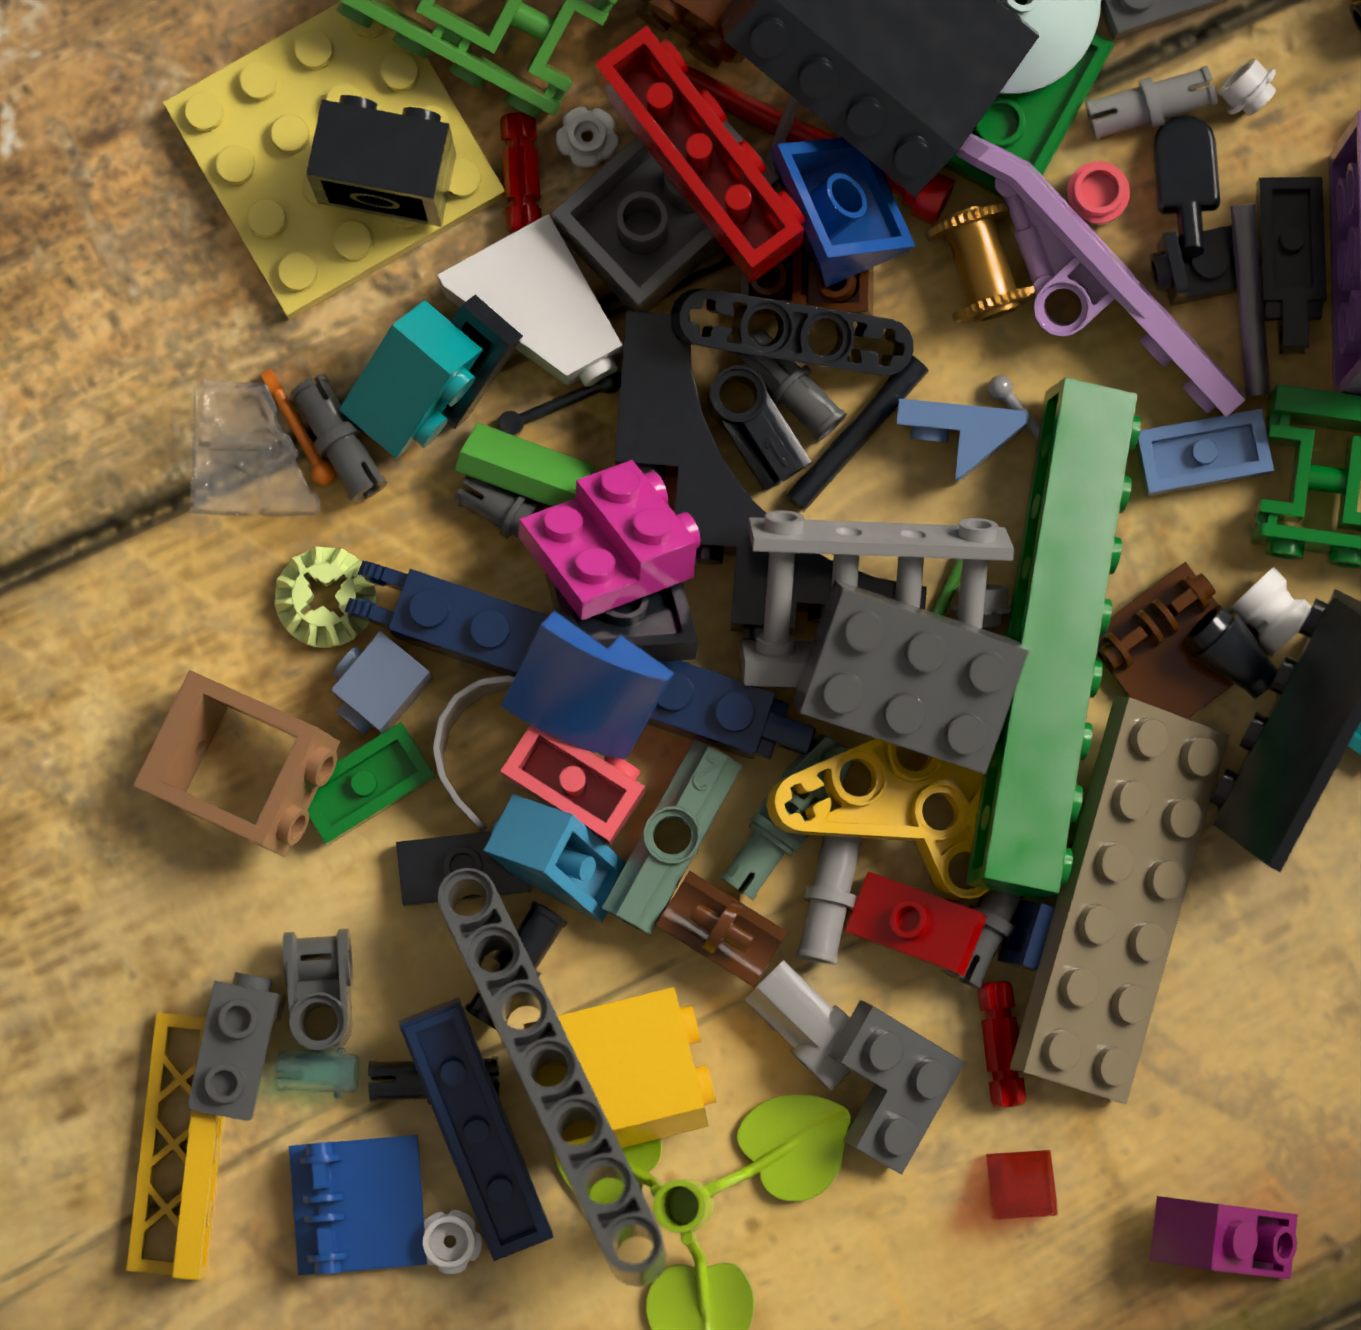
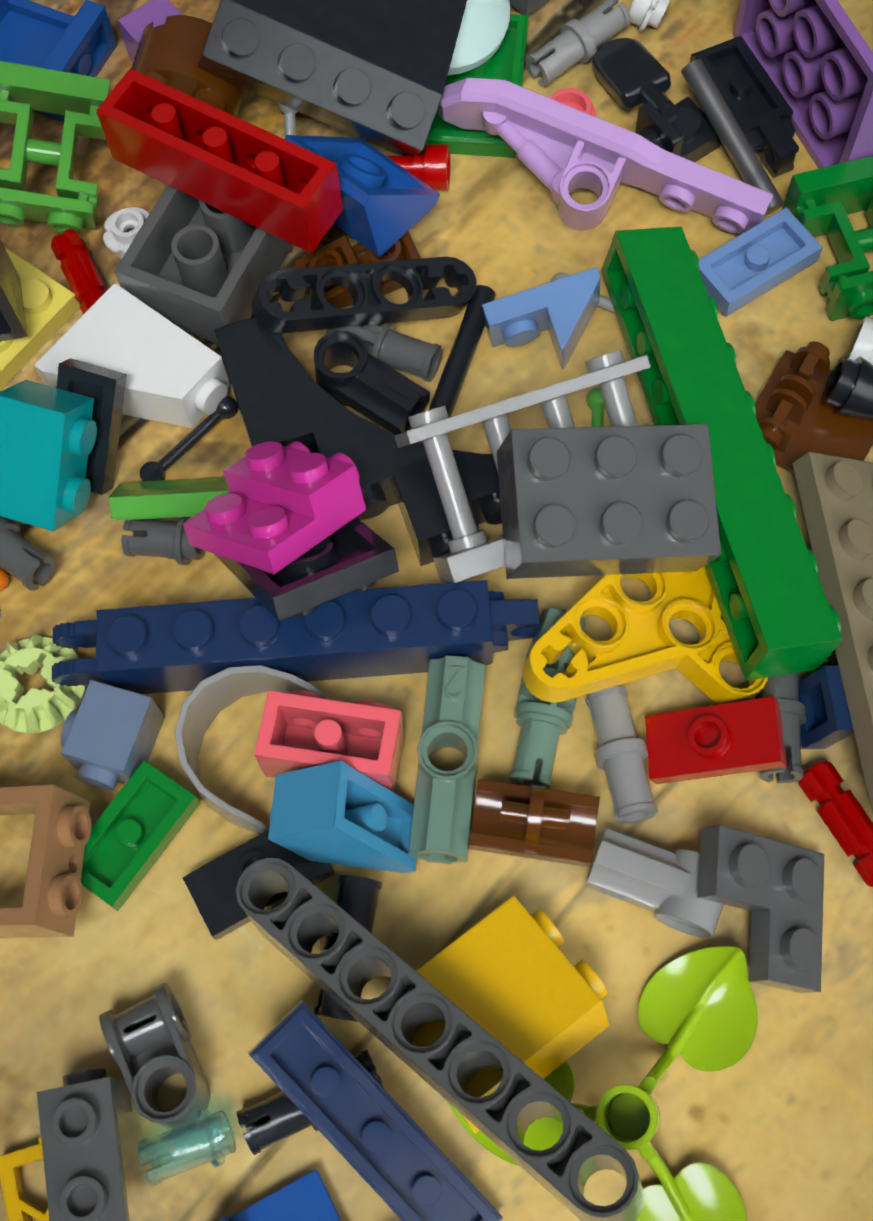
camera: 20 degrees left, 15 degrees down
(585, 690) = (304, 631): blue slope -> none
(981, 263) = (500, 189): pearl gold hose -> none

